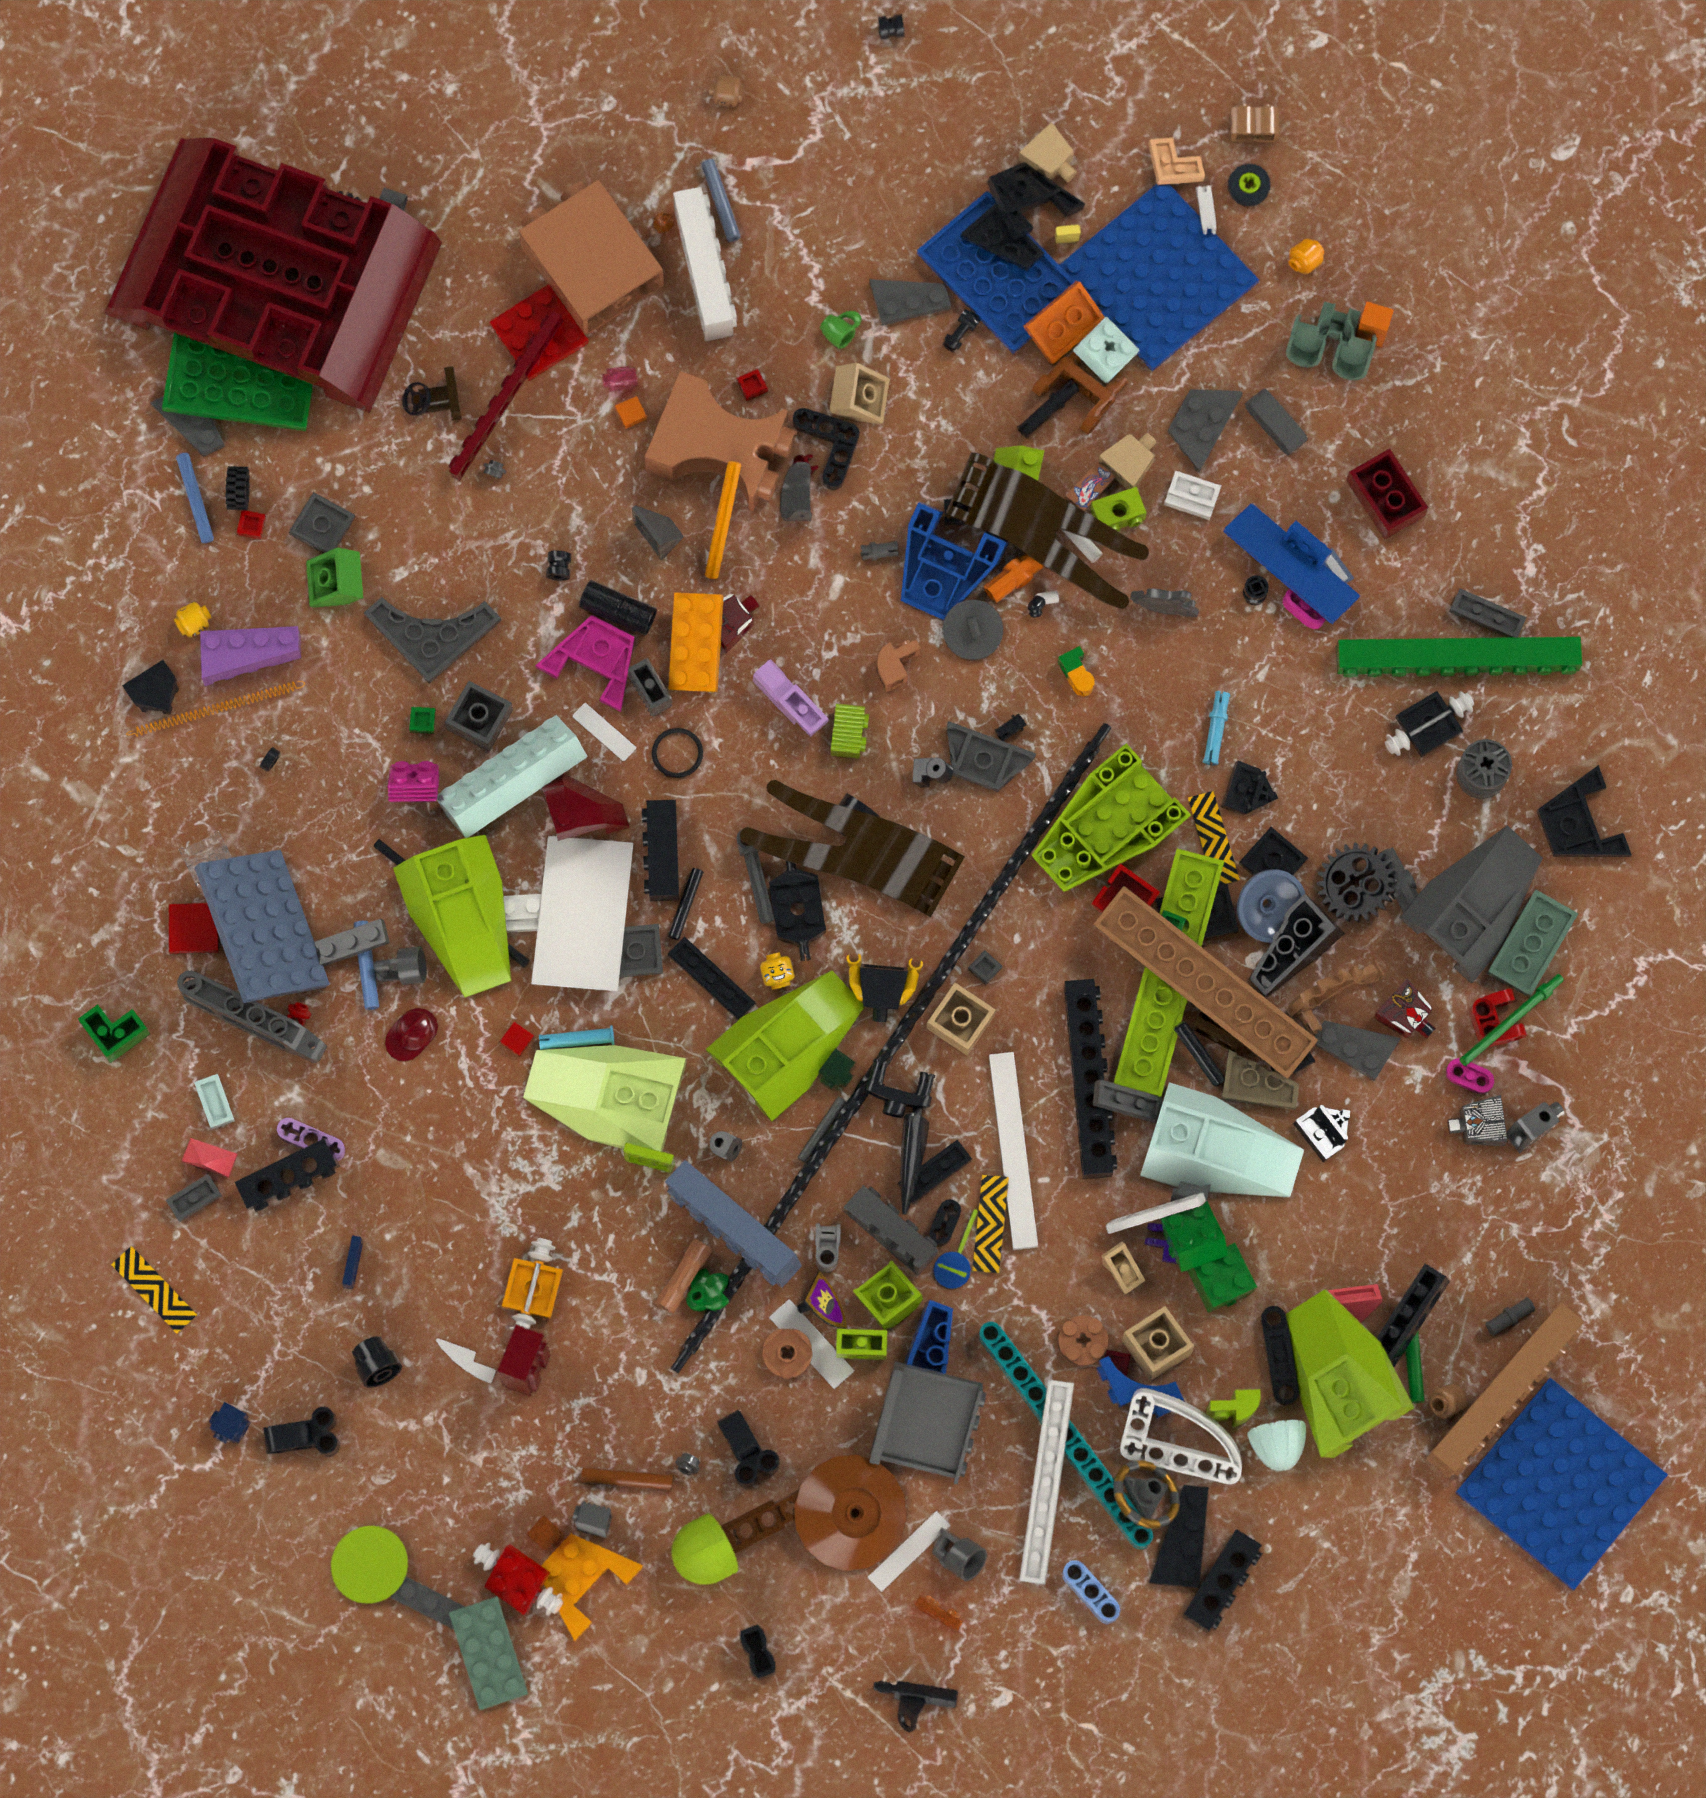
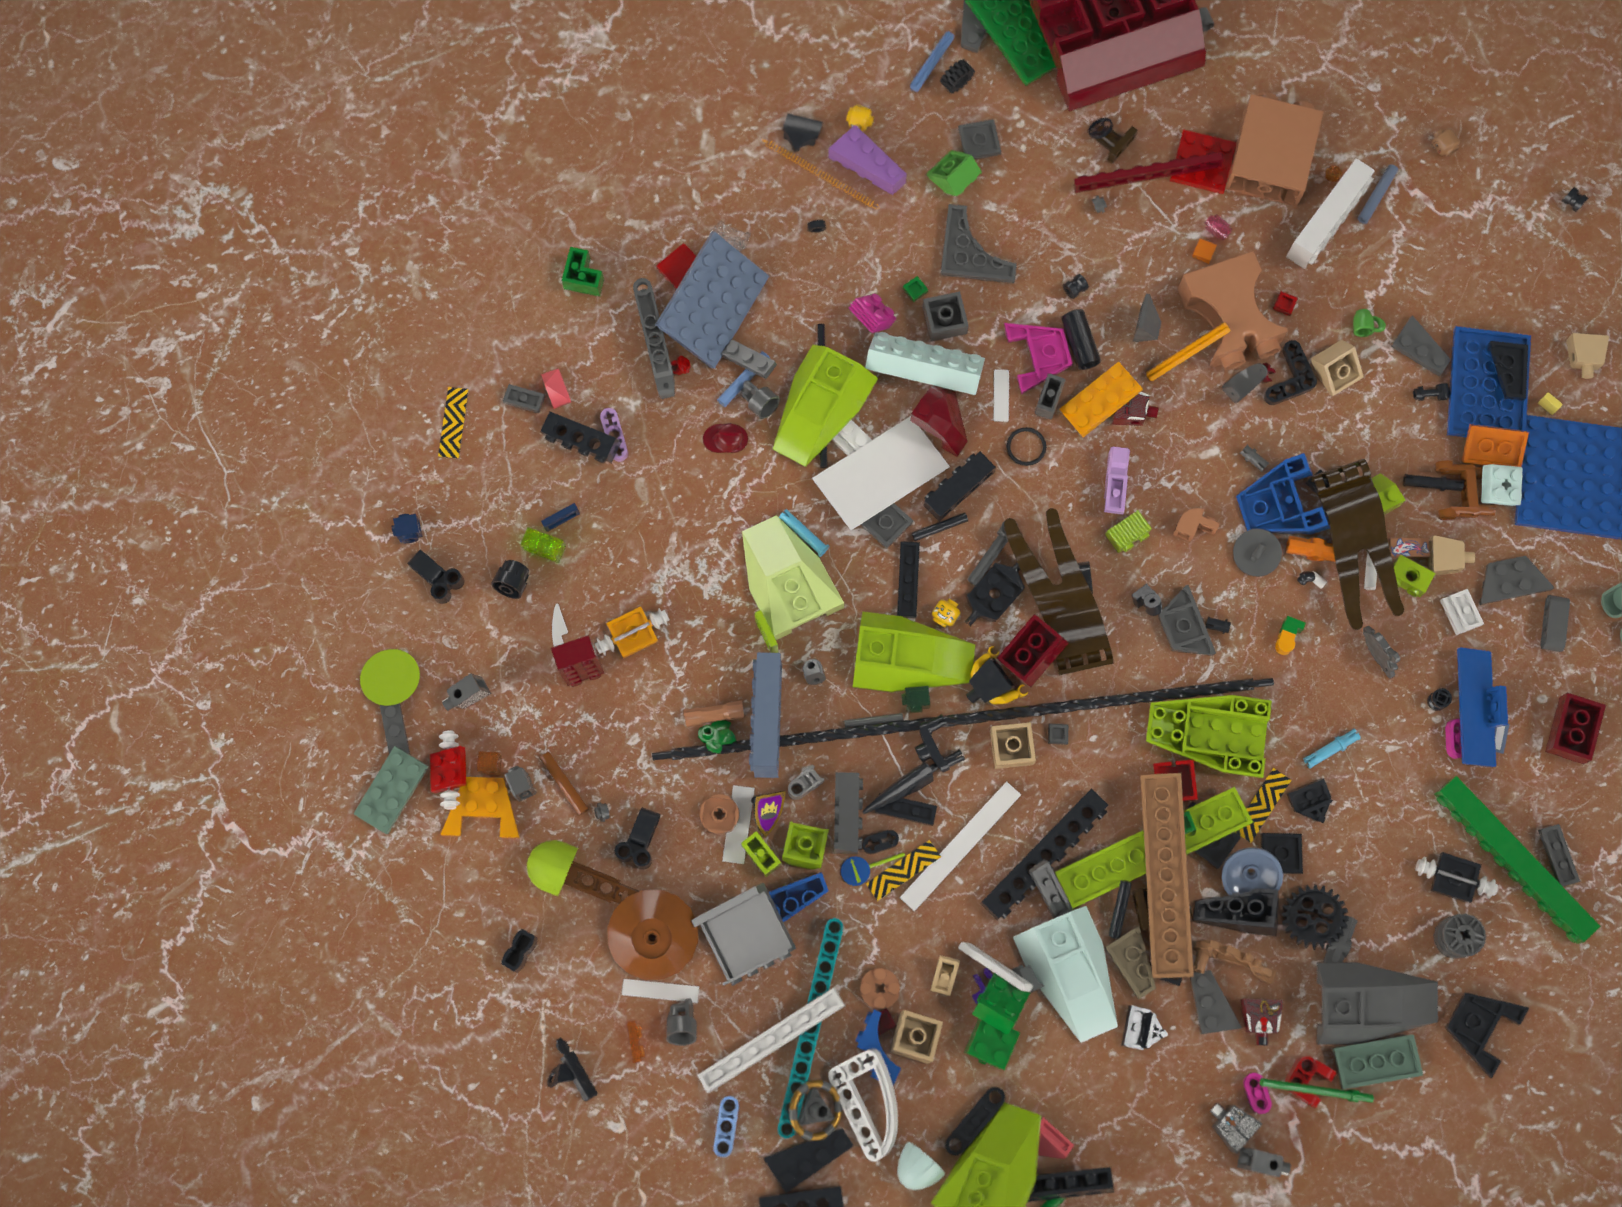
camera: 55 degrees right, 0 degrees up
(214, 1101) = (590, 363): light aqua tile -> none
(251, 524) = (944, 103): red tile -> none
(367, 1302) = (543, 545): none -> clear neon green brick
(455, 1489) = (466, 692): none -> dark grey torso
(517, 1039) = (774, 499): red tile -> none
(887, 921) = (1032, 650): none -> dark red brick
(1024, 189) = (1554, 356): black wing -> none
(1240, 1407) = (919, 1125): lime brick -> none

